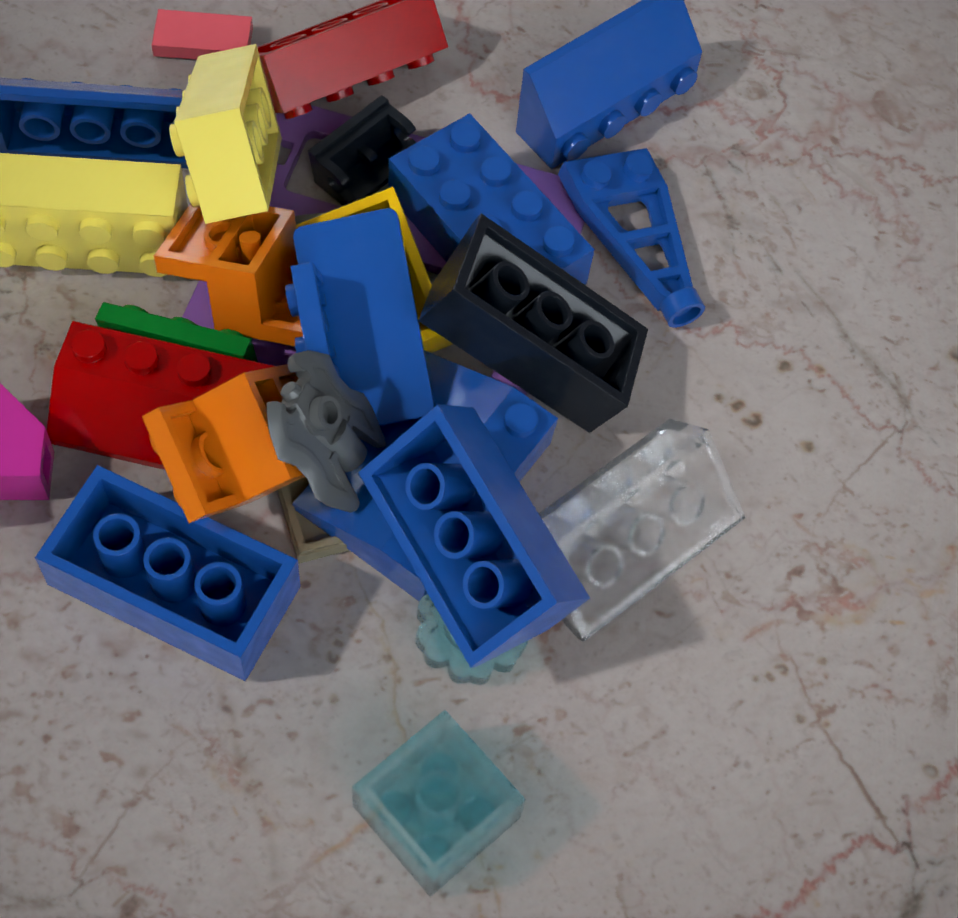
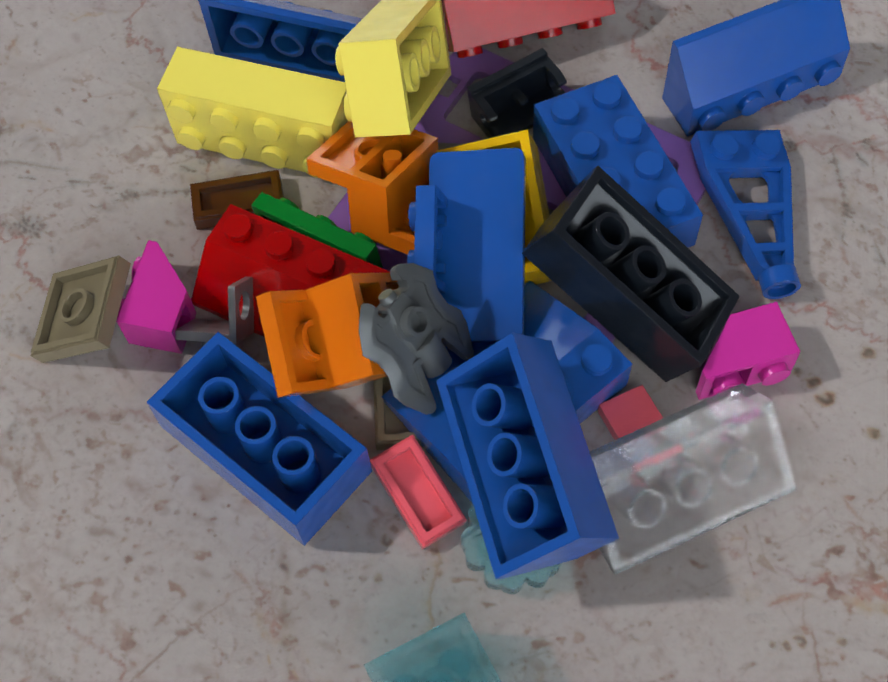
camera: 25 degrees right, 0 degrees up
(48, 318) = (213, 197): none -> reddish brown tile
(80, 467) = (236, 328): none -> flat silver bracket
(356, 597) = (417, 491): none -> coral tile
(559, 471) = (629, 412): none -> coral tile
(670, 382) = (750, 350): none -> dark pink slope

